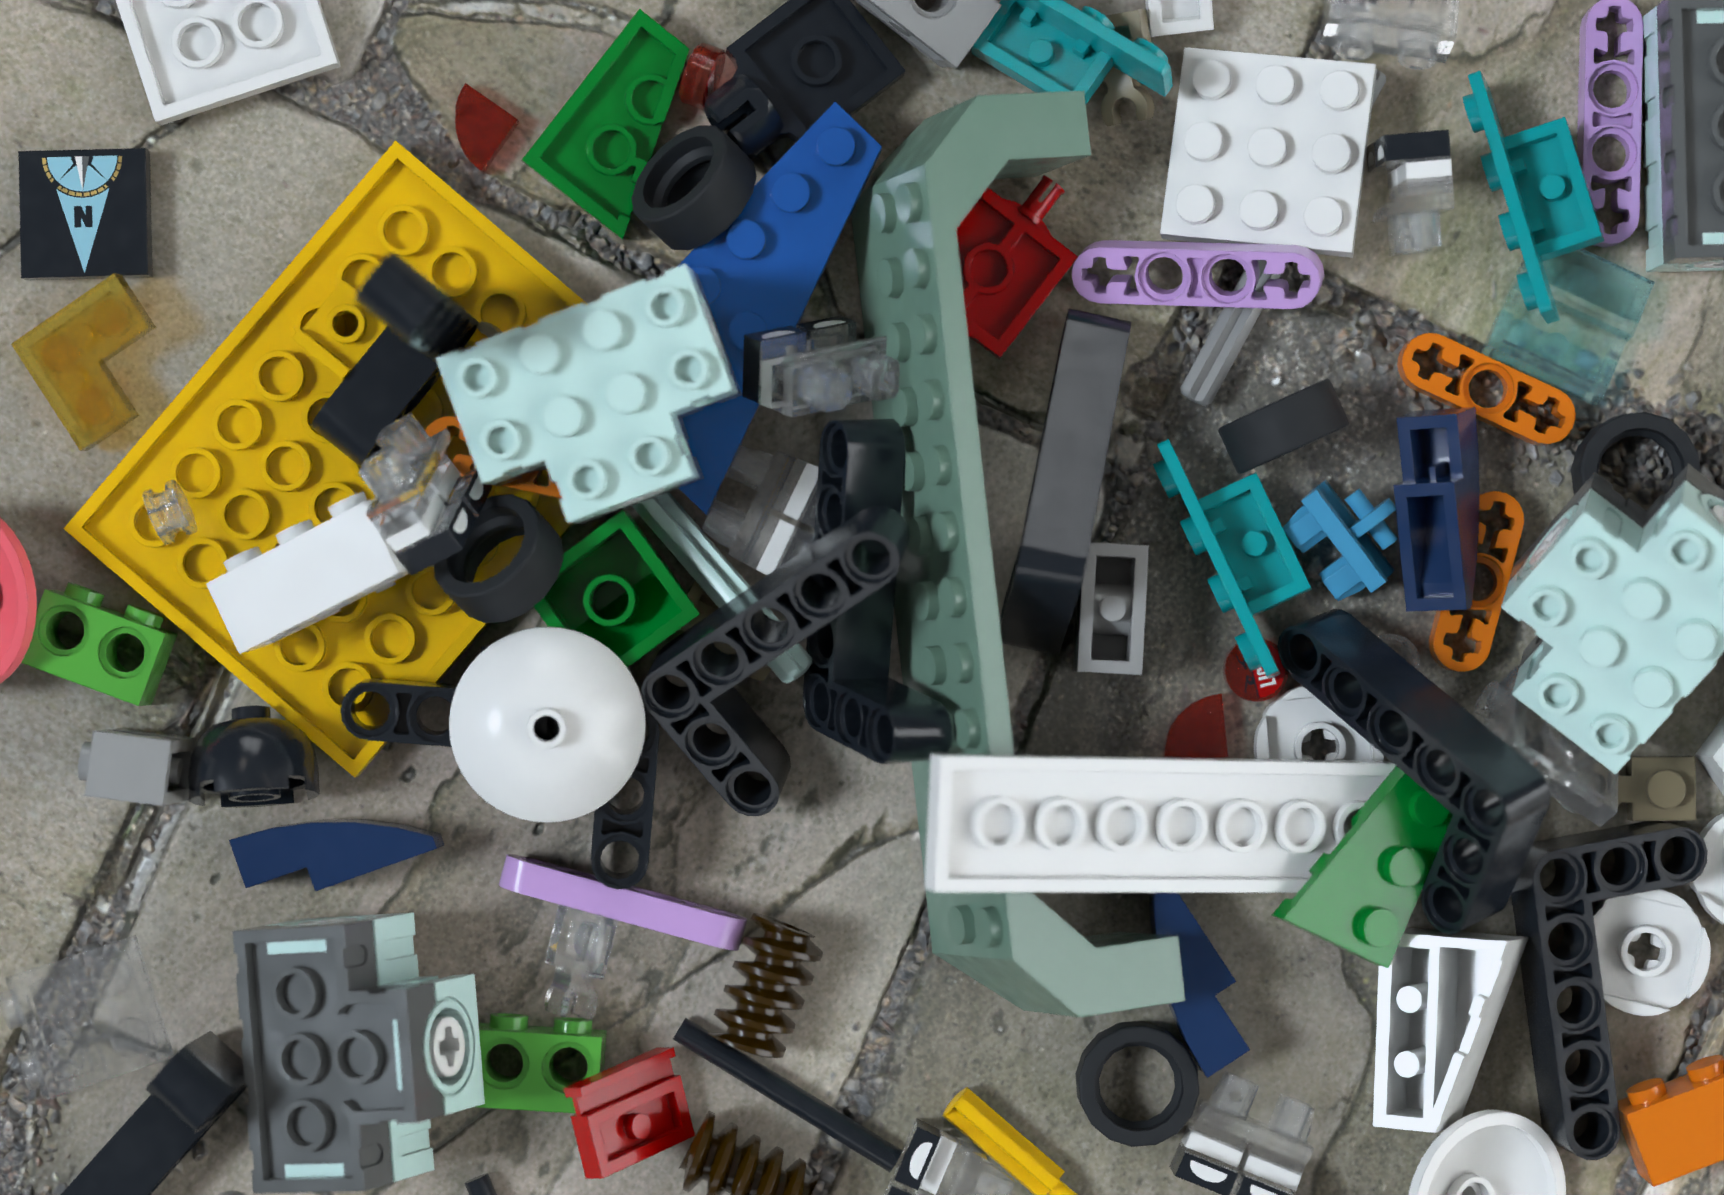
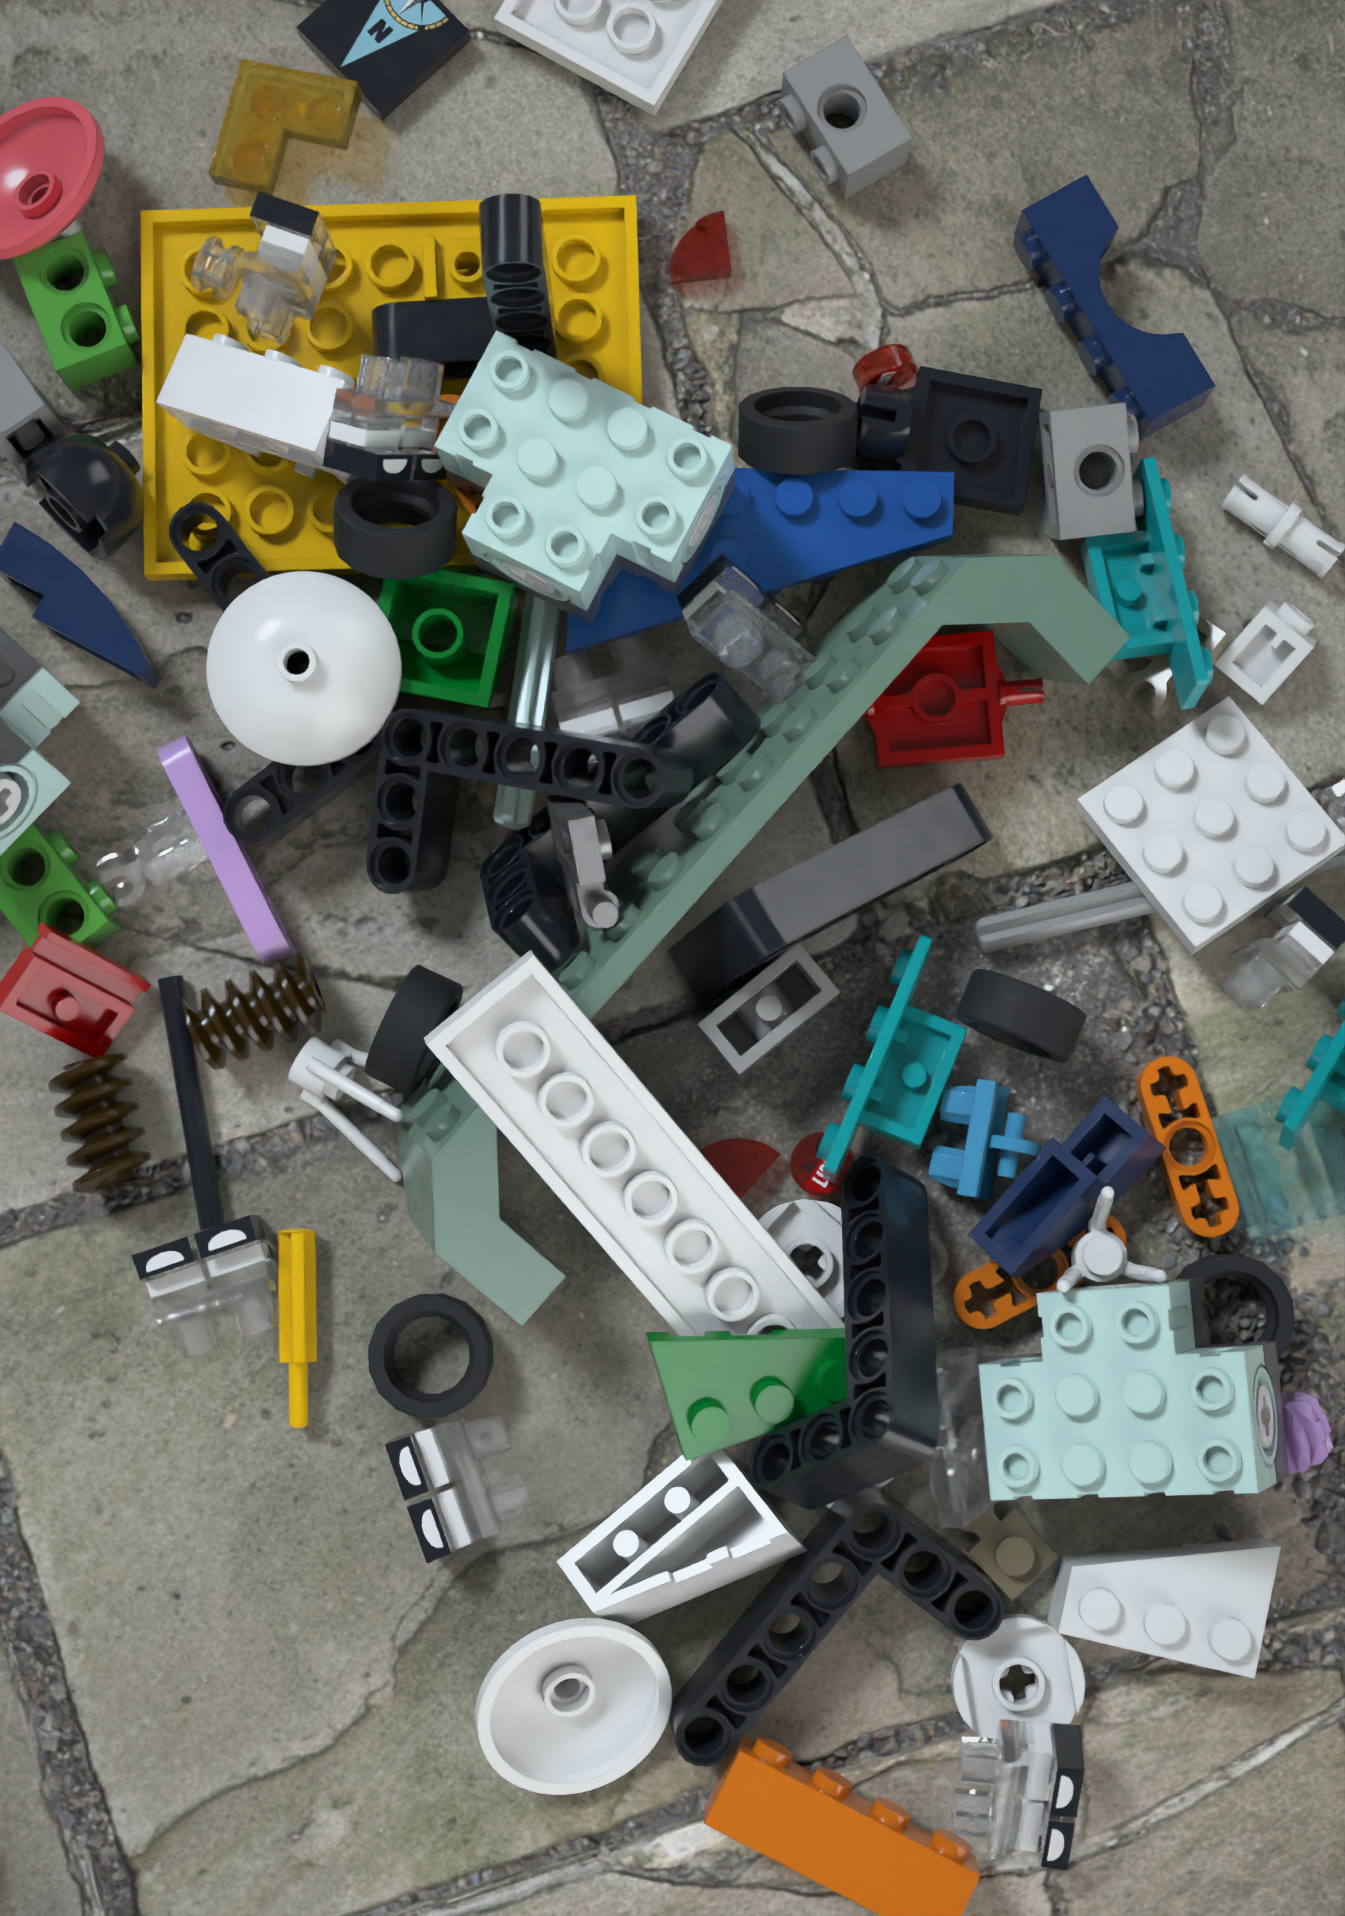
camera: 45 degrees right, 5 degrees down
(226, 464) = (287, 269): none -> clear hips
(612, 123) = (790, 336): green wing -> none
(857, 975) = (326, 1073): none -> white plant
(883, 645) = (581, 848): none -> flat silver plate
(888, 883) = (399, 1048): none -> black tyre
(1197, 283) = (1077, 847): lavender beam -> none
(1200, 1017) = (553, 1327): dark blue slope -> none
(1512, 530) = (1102, 1254): none -> white plant
(1673, 929) = (914, 1664): white plate -> none

